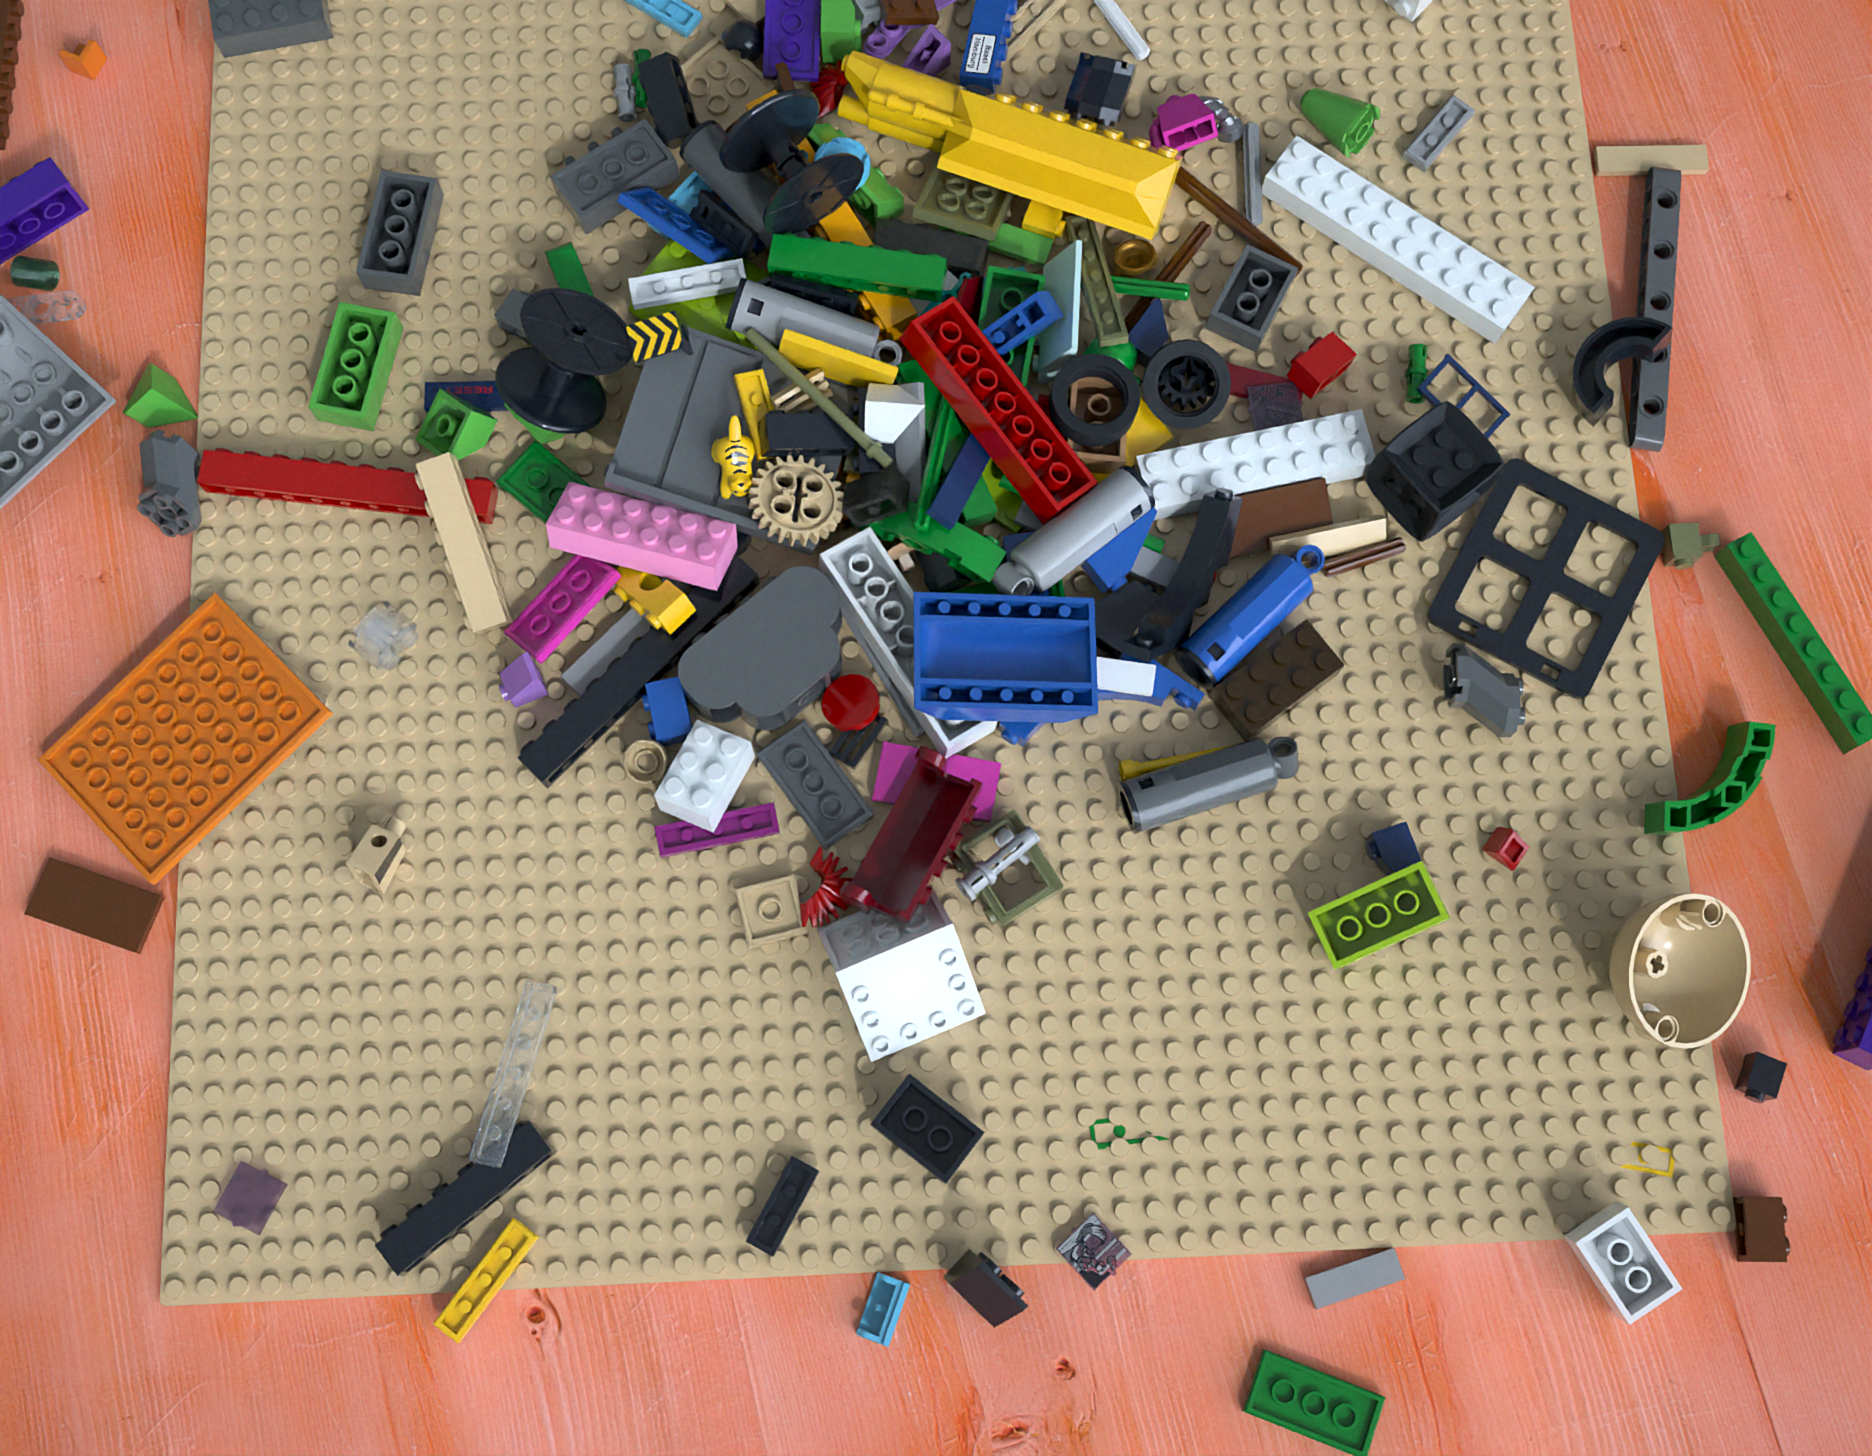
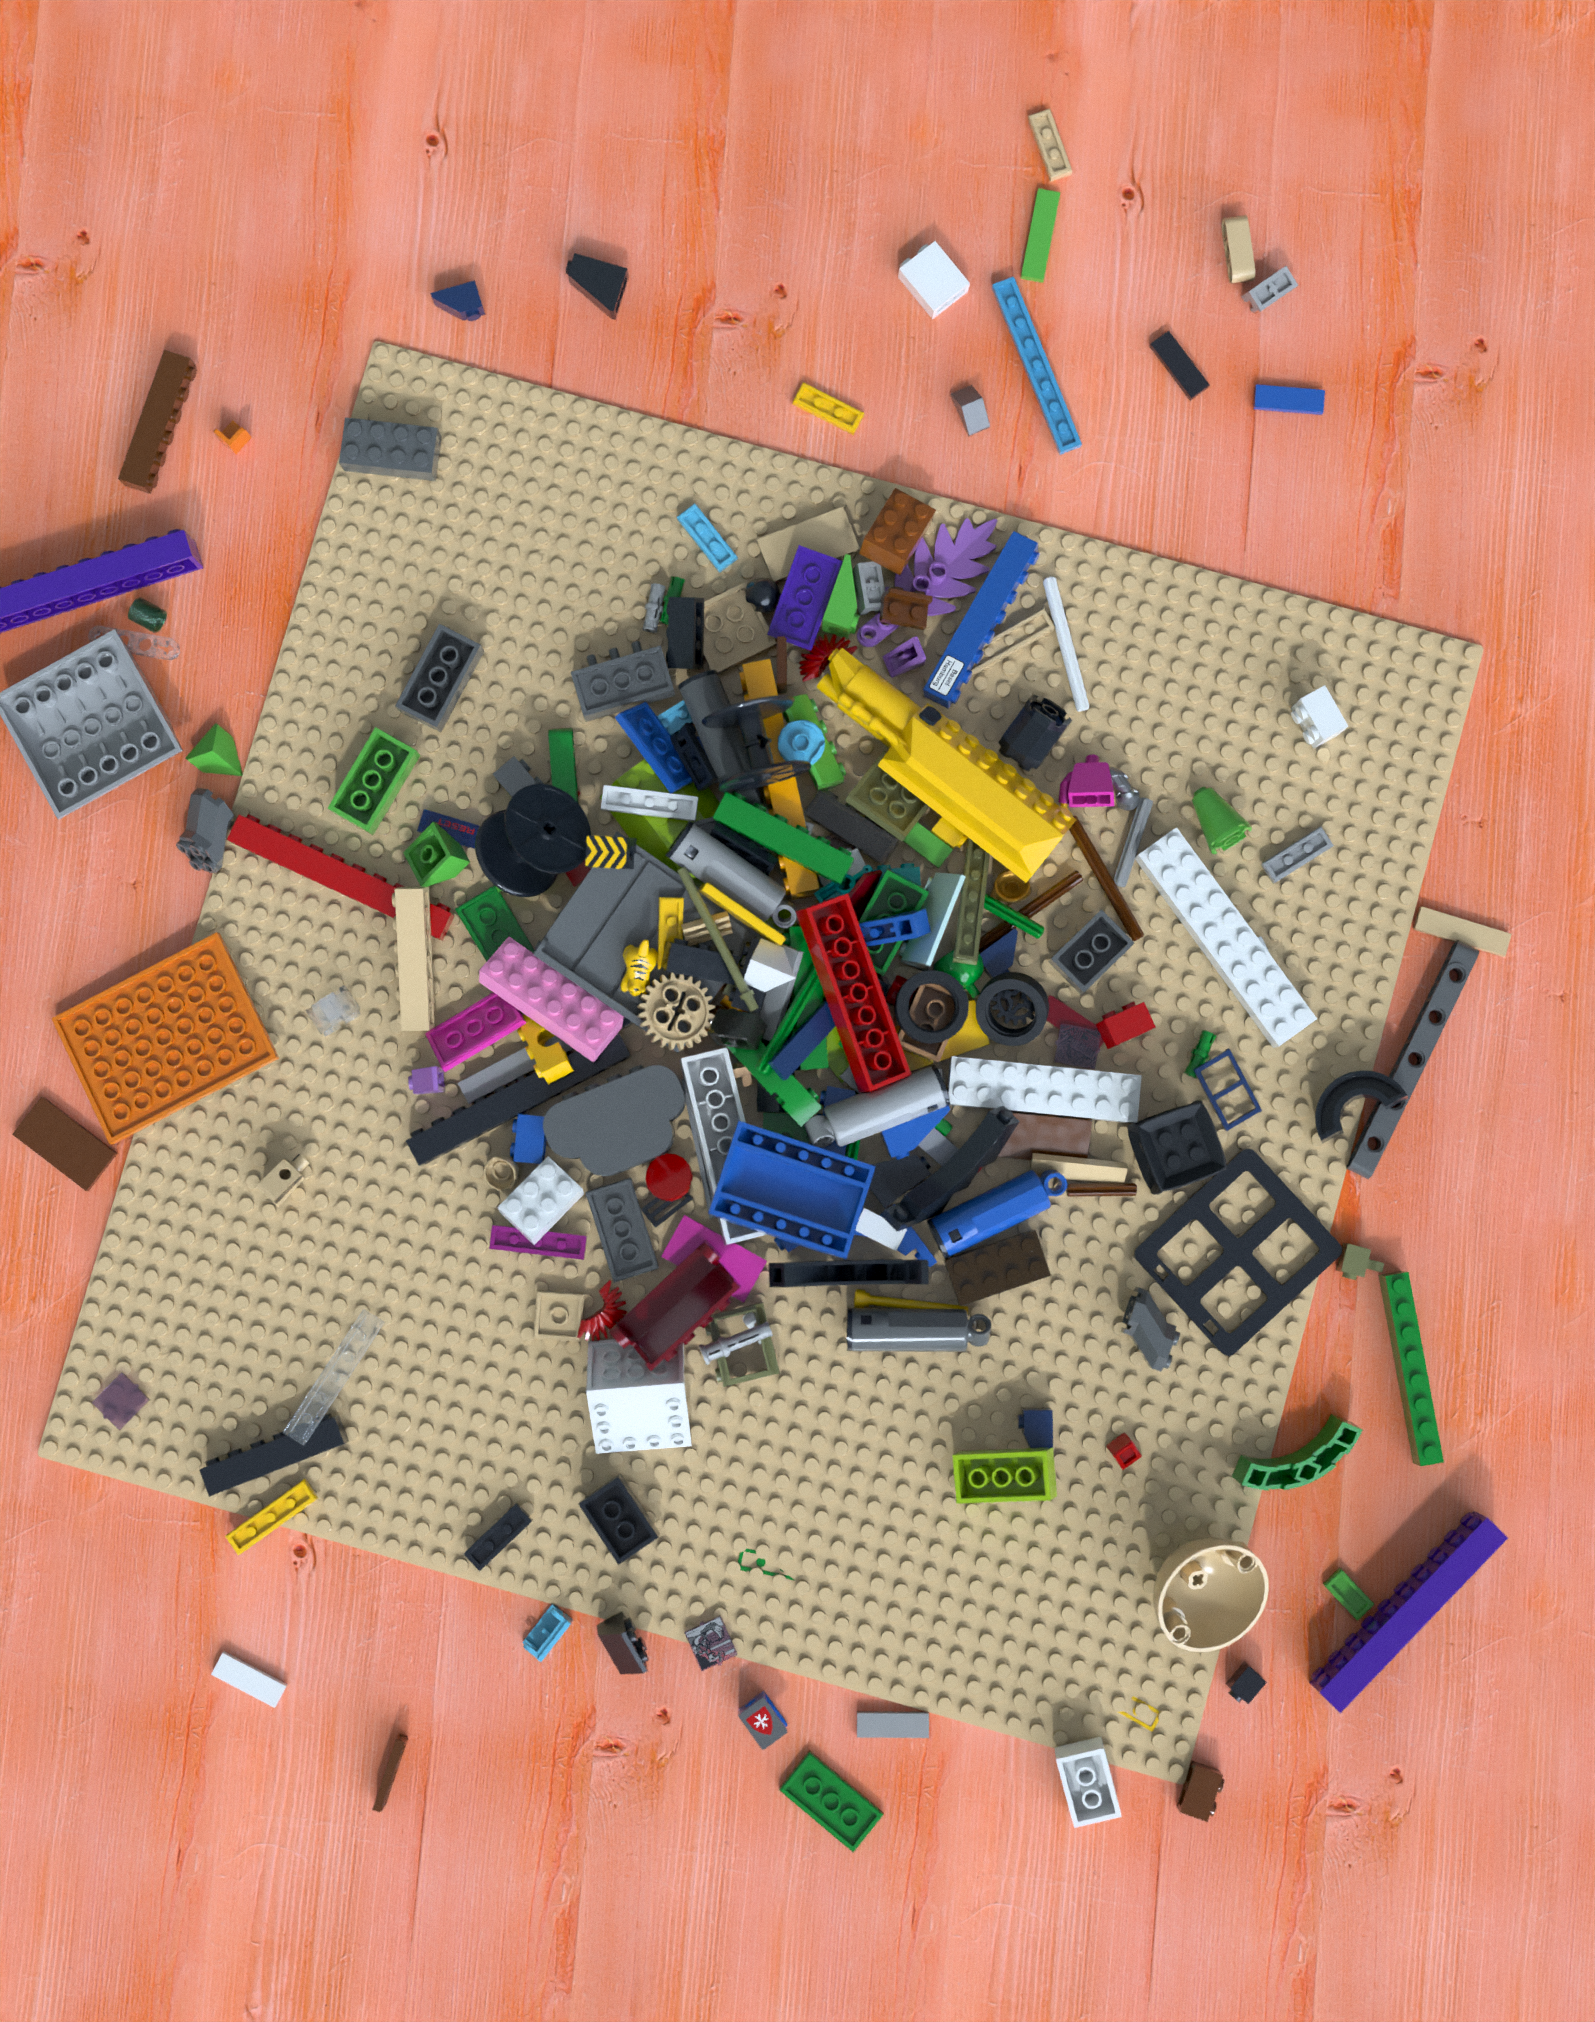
camera: 20 degrees right, 10 degrees up
(624, 392) = (578, 874): none -> red slope
(1107, 740) = (848, 1272): none -> black arch
(1193, 1326) = (763, 1720): none -> piece
(1835, 930) = (1348, 1594): none -> bright green tile

